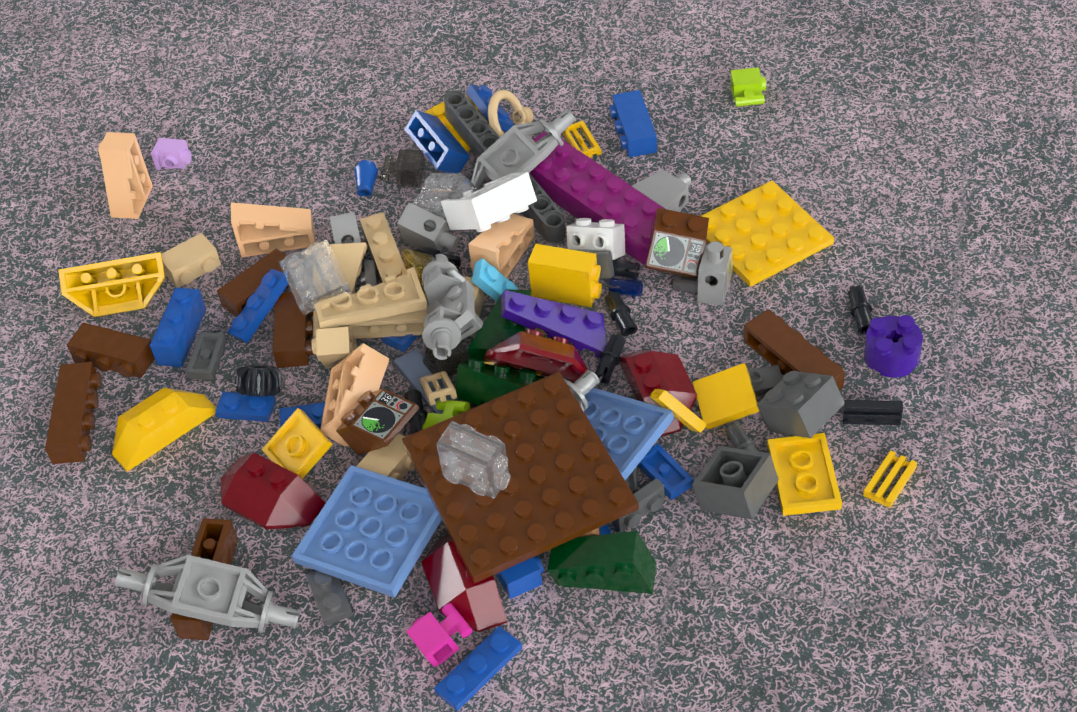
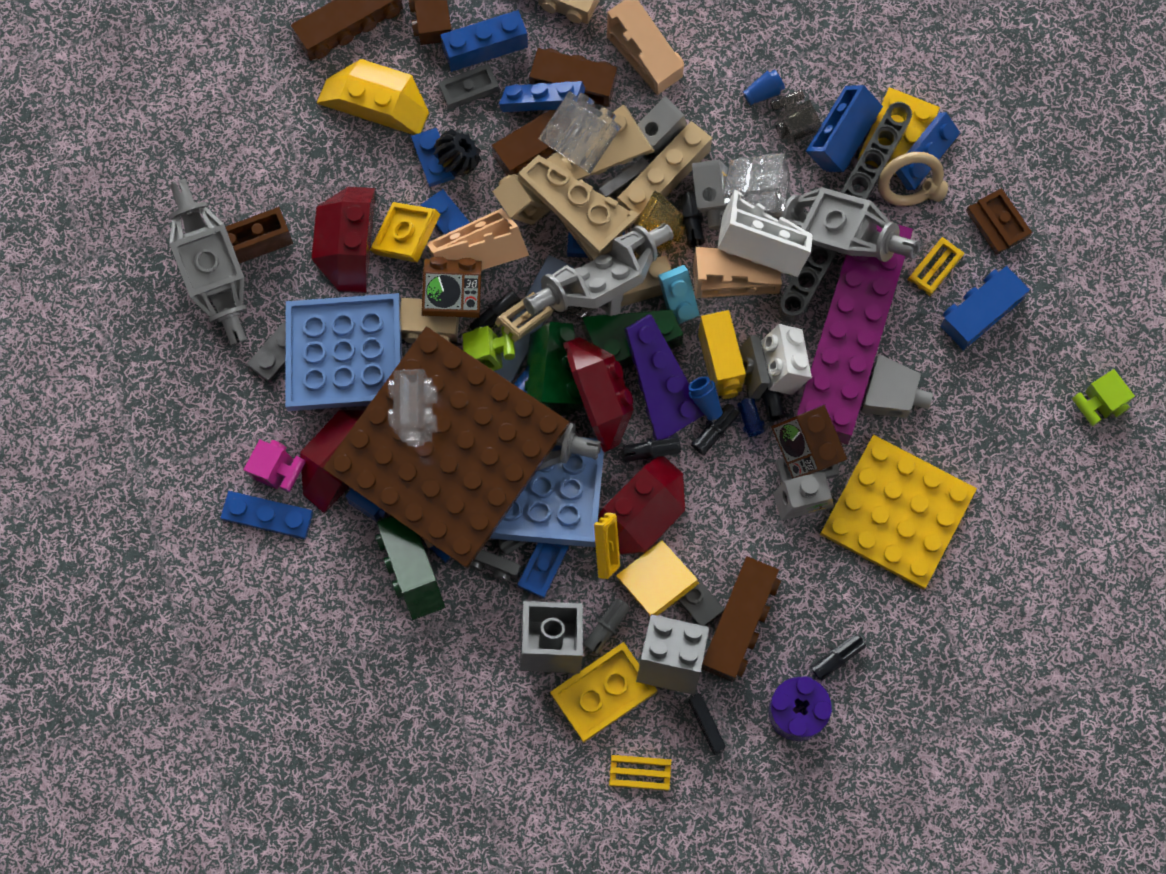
camera: 55 degrees right, 25 degrees up
(573, 94) = (999, 221): none -> reddish brown plate
(592, 299) = (705, 396): none -> blue cone

